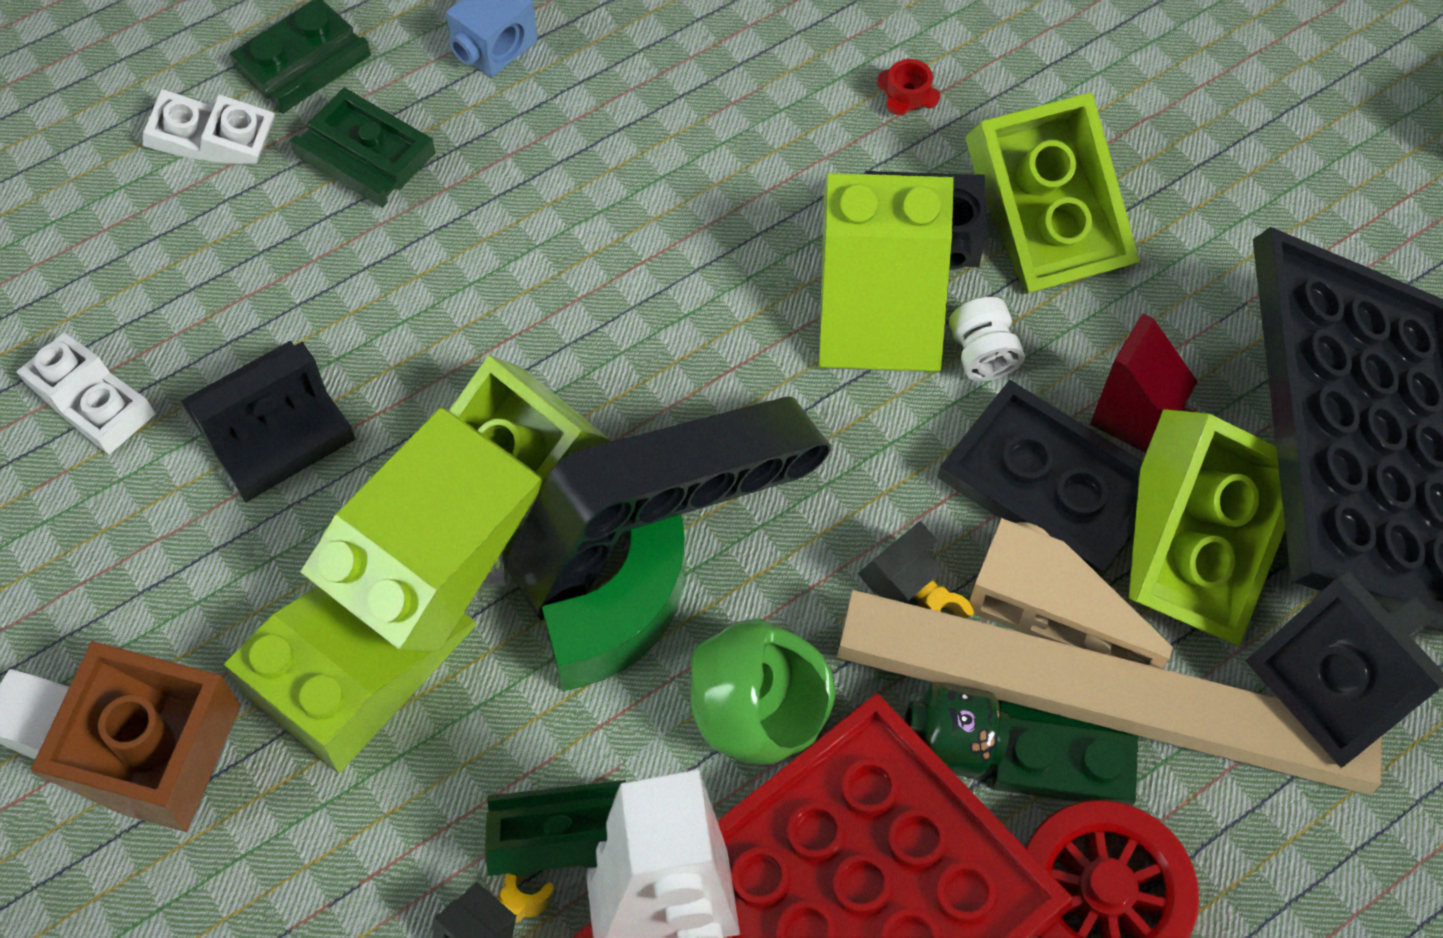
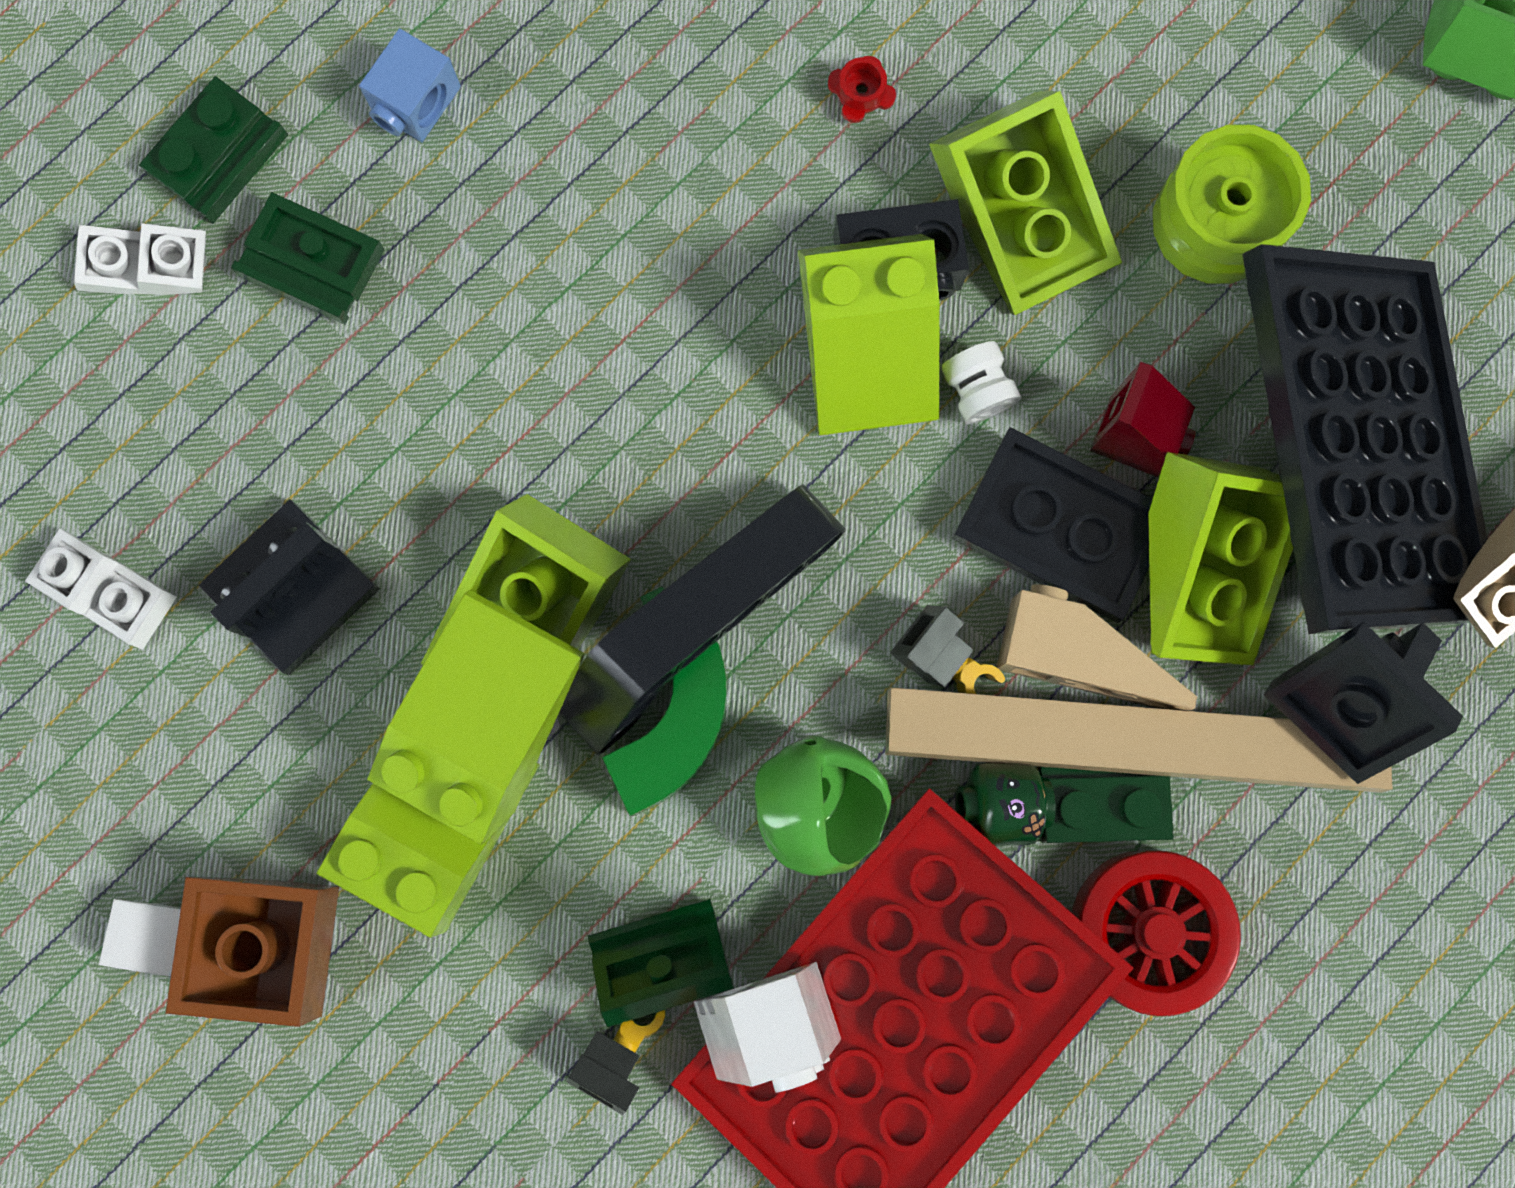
camera: 10 degrees left, 20 degrees up
(1235, 200) = (1228, 197): none -> lime wheel

